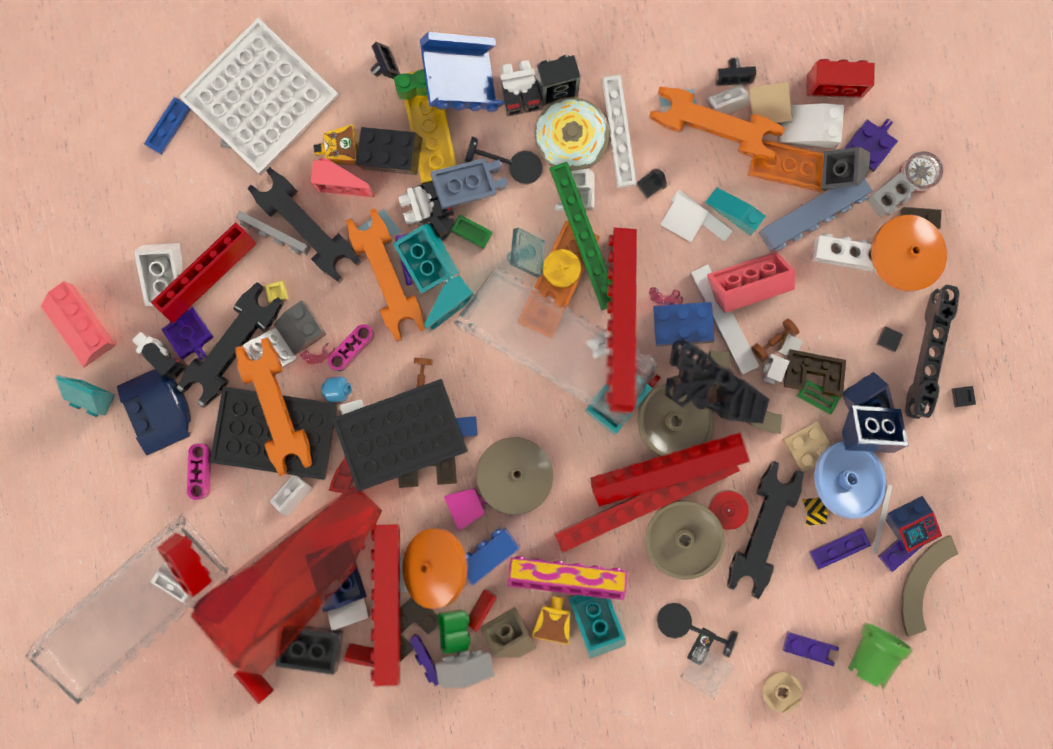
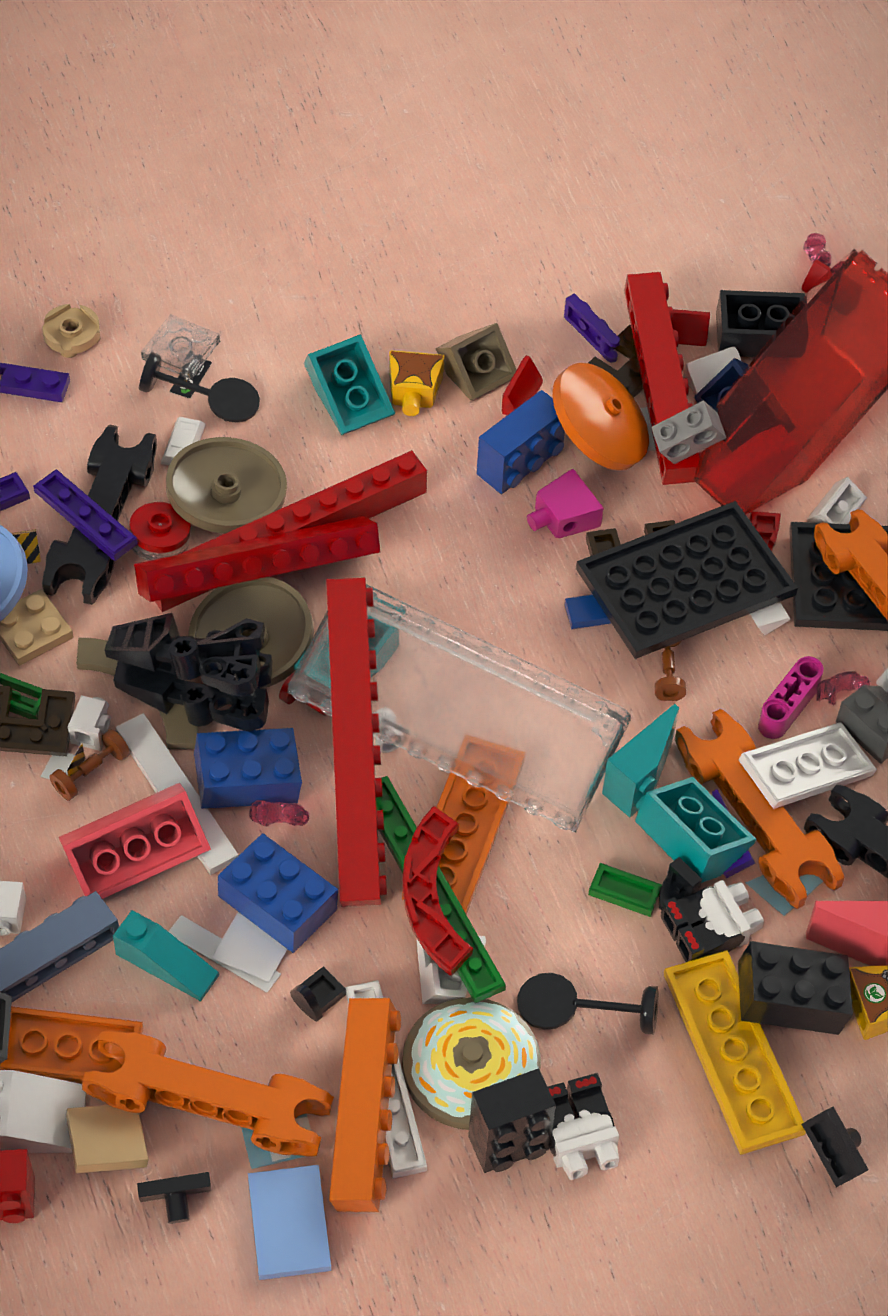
camera: 170 degrees right, 30 degrees down
(256, 723) = (815, 249): none -> clear pink piece
(336, 389) = (800, 638): dark azure head -> none
(351, 297) = (807, 765): none -> white tile
(380, 537) = (688, 432): none -> light grey brick
(410, 85) = (770, 1098): green brick -> none
(454, 631) = (555, 353): green brick -> none
(459, 71) = (693, 1120): panel -> none
(464, 669) = (536, 307): light grey hinge -> none
(467, 182) = (646, 949): sand blue tile -> none
(498, 483) = (498, 547): dark tan dish -> none
(527, 252) = (525, 847): clear light blue tile -> none
(561, 268) = (474, 837): yellow tile -> none
(567, 578) = (398, 429): brick -> none
(590, 224) = (421, 894): none -> red tile
(633, 108) = (364, 1105): none -> orange brick
(670, 241) = (277, 892): none -> blue brick
(676, 56) = (289, 1222): none -> light blue tile
(709, 588) = (184, 433): none -> white tile
(730, 100) = (185, 1150): white slope -> none
(777, 520) = (85, 515): none -> dark purple tile

